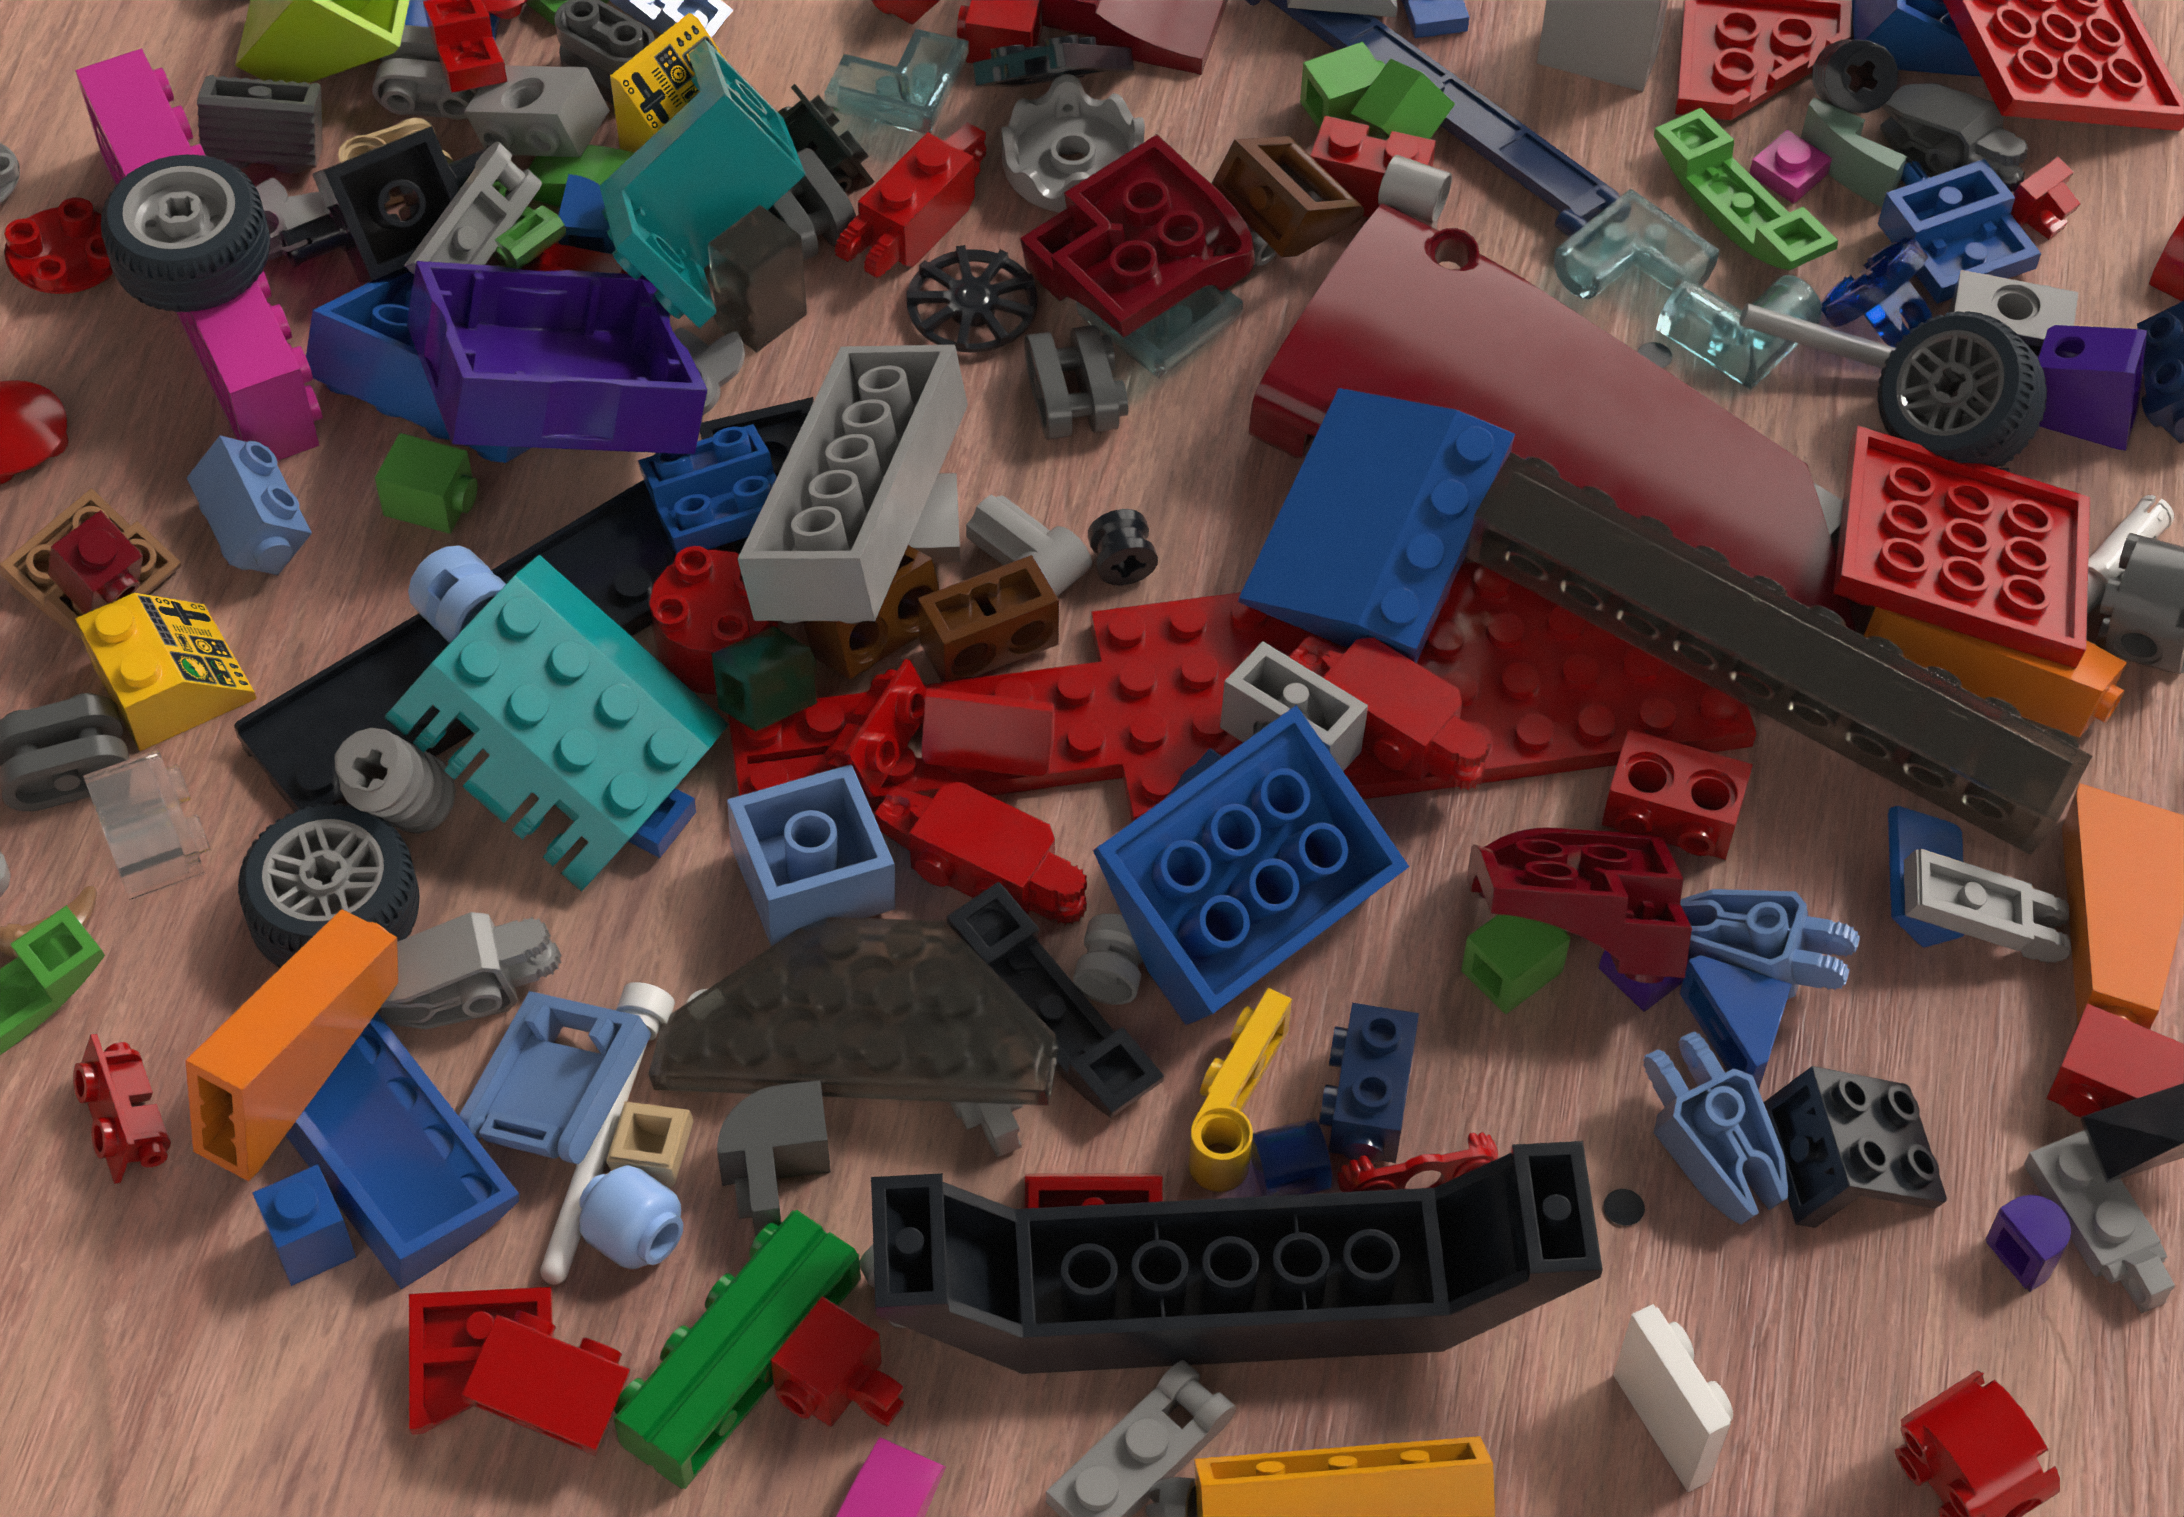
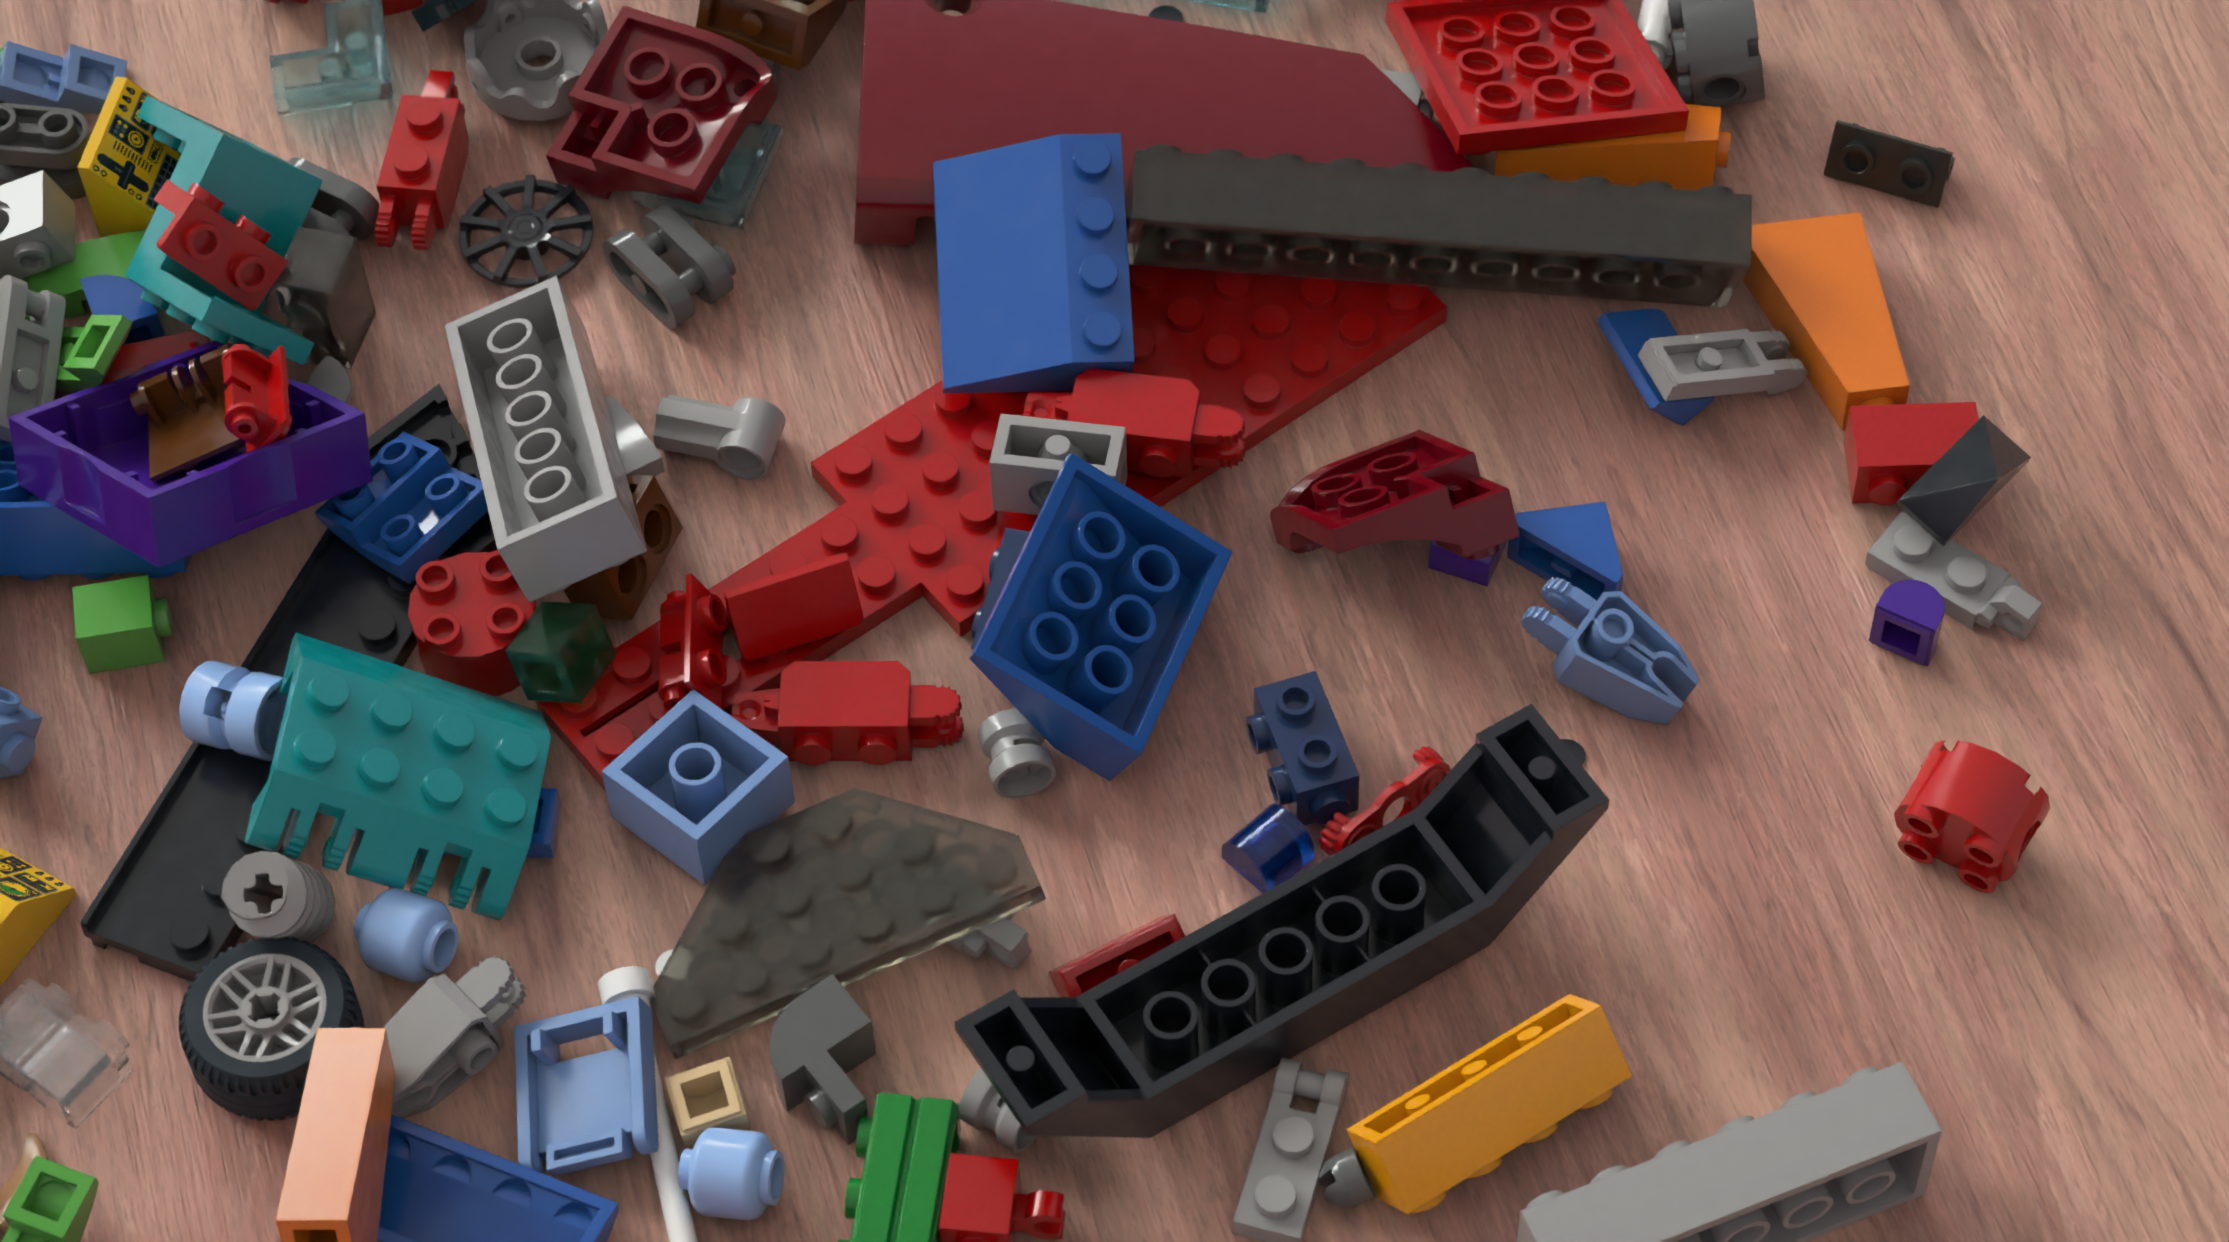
camera: 25 degrees left, 0 degrees up
(489, 865) = (406, 935): none -> light blue head
(585, 325) = (185, 417): none -> reddish brown hinge
(619, 331) = (256, 395): none -> red hinge
(671, 191) = (215, 249): none -> red bracket
(811, 126) = (280, 135): pearl dark grey hinge -> none
(989, 620) = (729, 510): reddish brown brick -> none
(1091, 1057) = (1061, 847): black slope -> none
(1122, 547) = (805, 392): black wheel -> none
(1228, 1090) = (1181, 813): yellow plate -> none
(1514, 958) = (1358, 590): bright green brick -> none
(1672, 1396) = (1706, 884): white tile -> none
(1679, 783) = (1413, 388): red brick -> none
(1769, 936) = (1567, 468): medium blue hinge -> none
(1851, 1140) = (1724, 611): black bracket -> none

